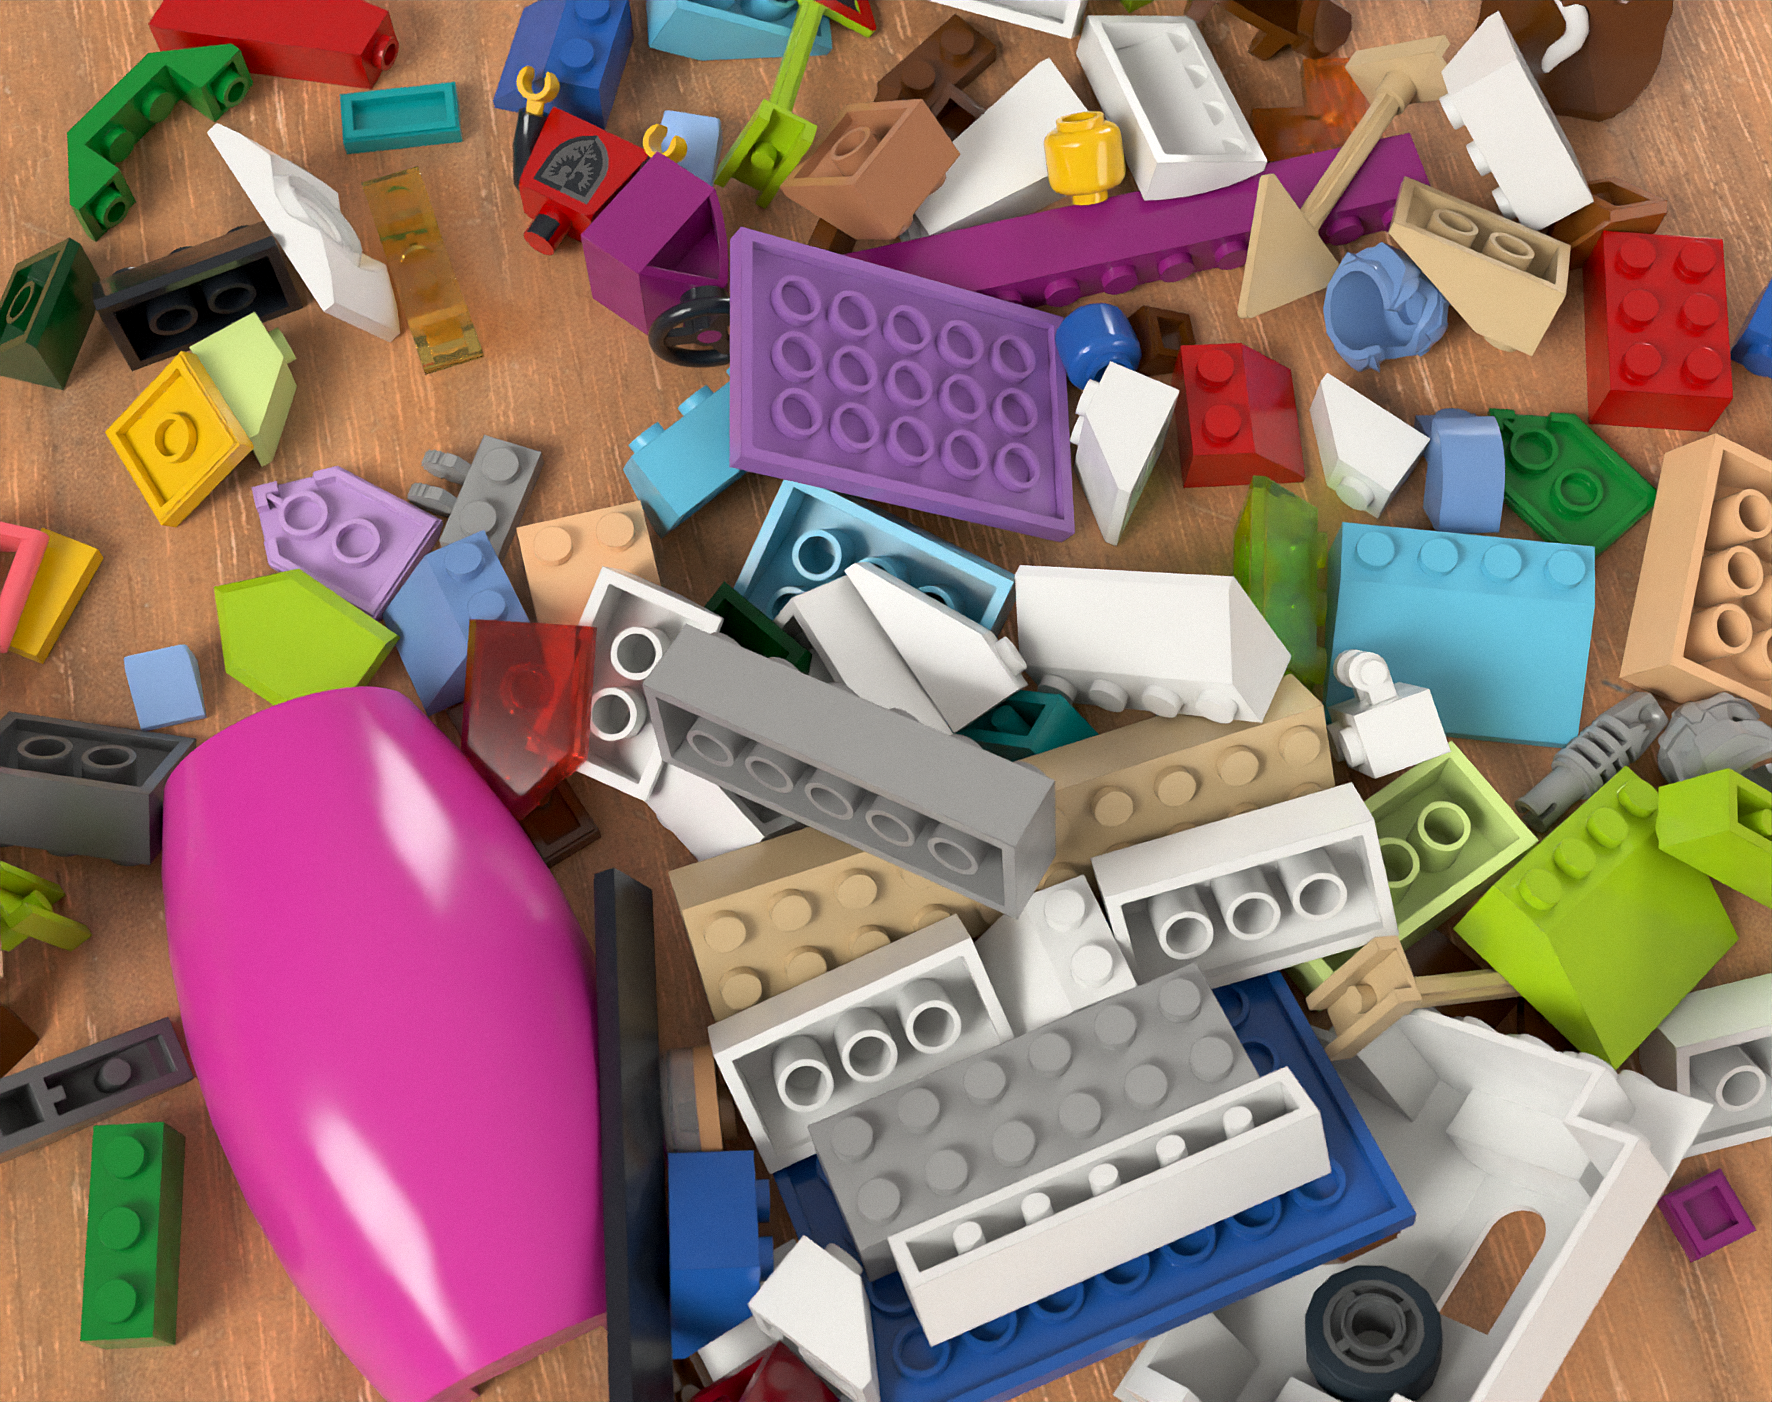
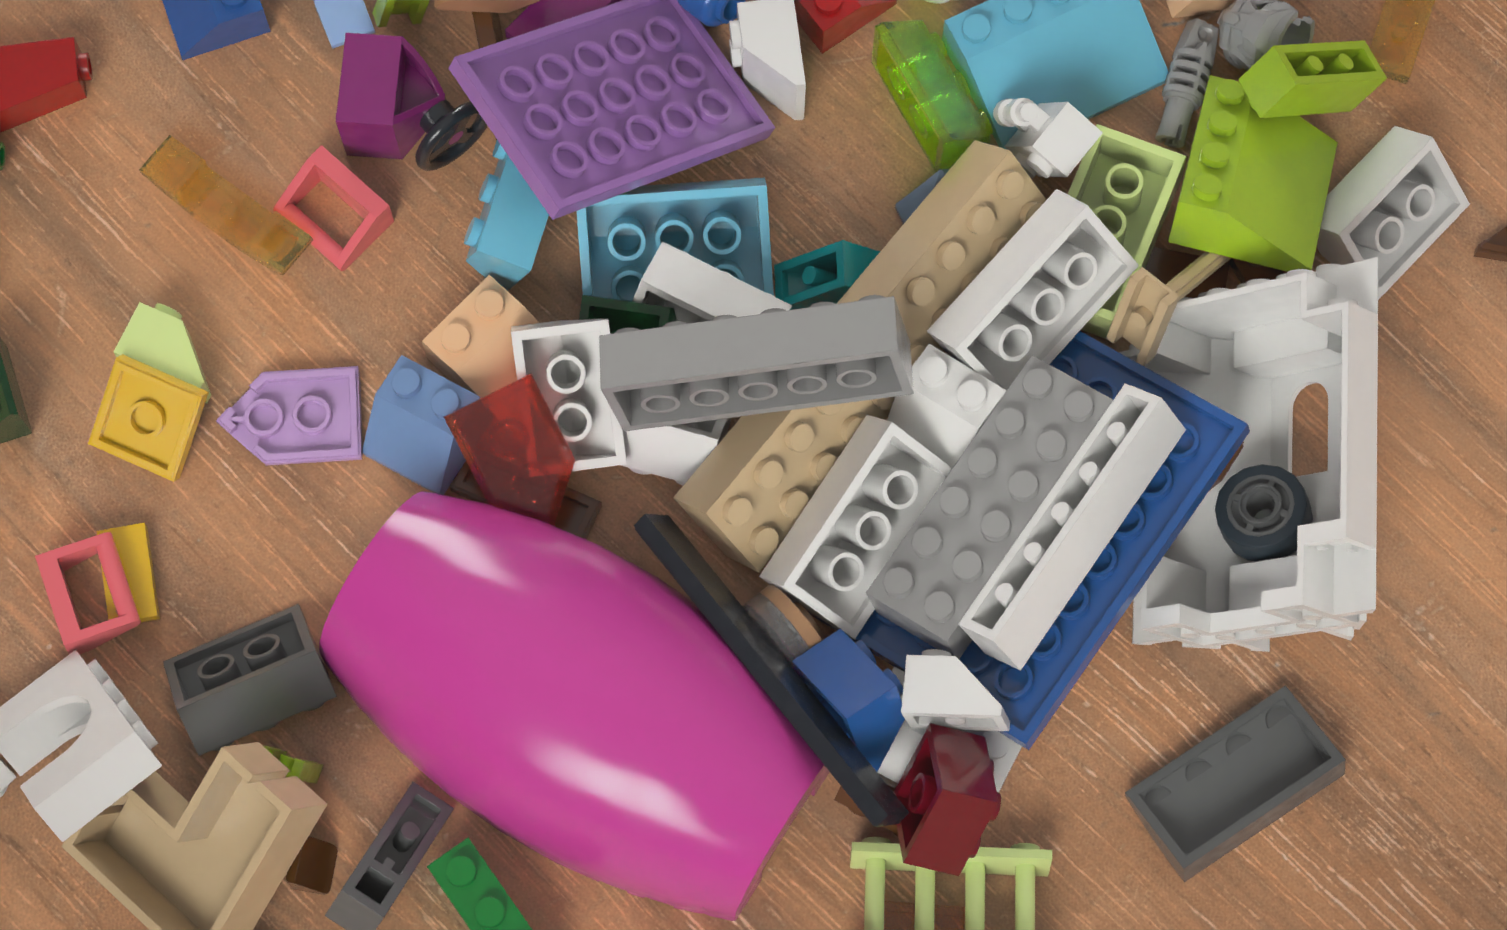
camera: 30 degrees left, 5 degrees up
(165, 687) = (257, 583): light blue slope -> none
(194, 293) = (84, 311): black slope -> none
(297, 637) = (323, 502): lime tile -> none
(313, 234) = (138, 223): white slope -> none
(400, 118) = (125, 106): teal tile -> none
(491, 495) = (378, 333): light grey hinge -> none
(558, 383) = (353, 191): none -> coral tile
(571, 166) = (284, 75): torso -> none
(948, 653) = (751, 253): white slope -> none
(1148, 642) = (876, 176): white slope -> none
(1705, 1215) = (1411, 324): magenta tile -> none

